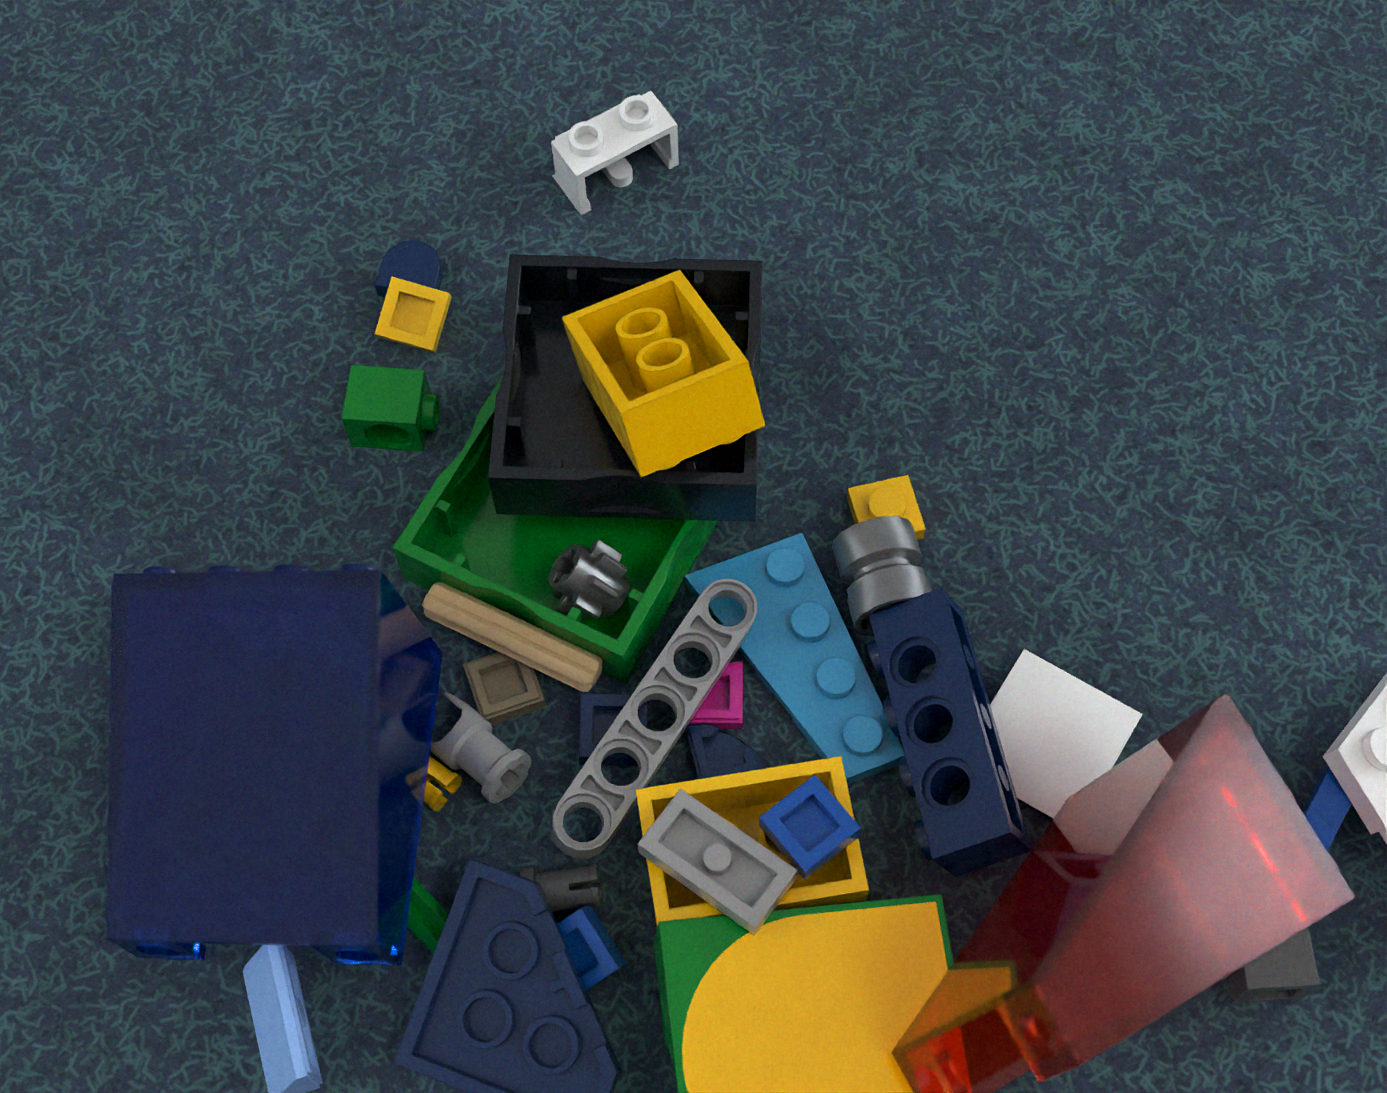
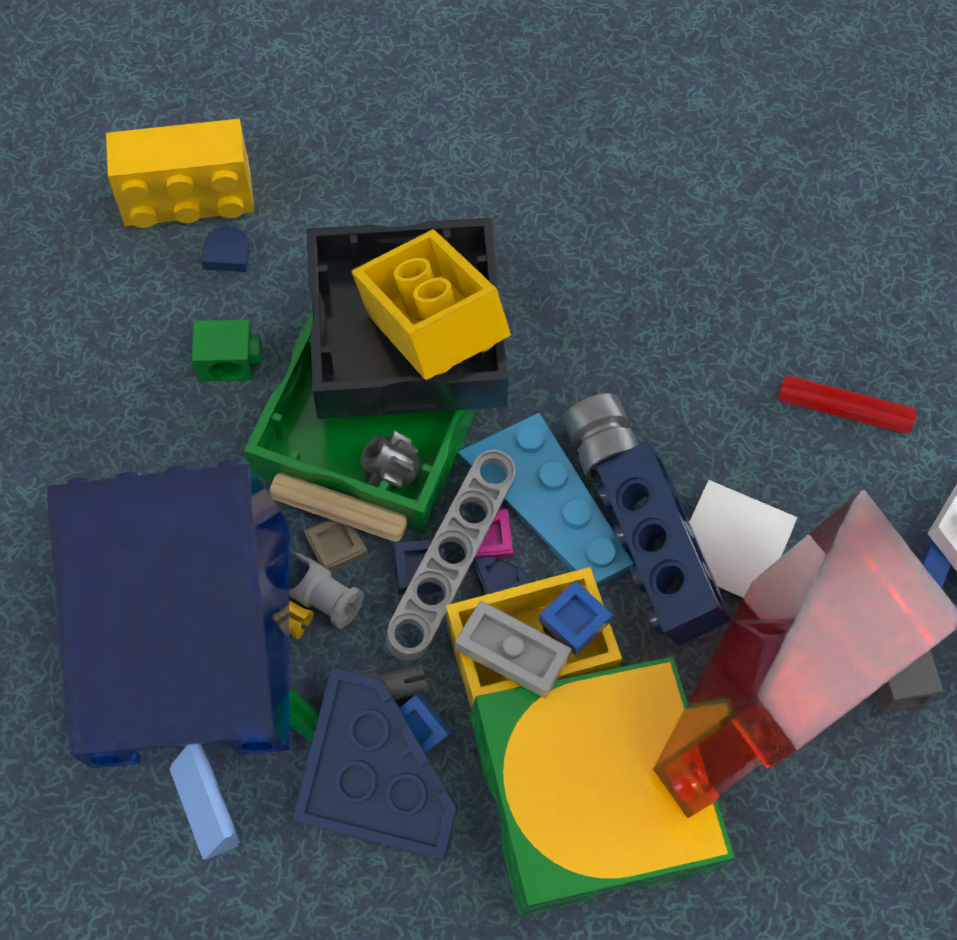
camera: 10 degrees left, 0 degrees up
(360, 164) = (180, 173): none -> yellow brick
(413, 314) = (233, 280): yellow plate -> none
(606, 142) = (361, 140): white window -> none
(886, 498) = (596, 382): yellow plate -> none
(1233, 561) = (847, 404): none -> red axle

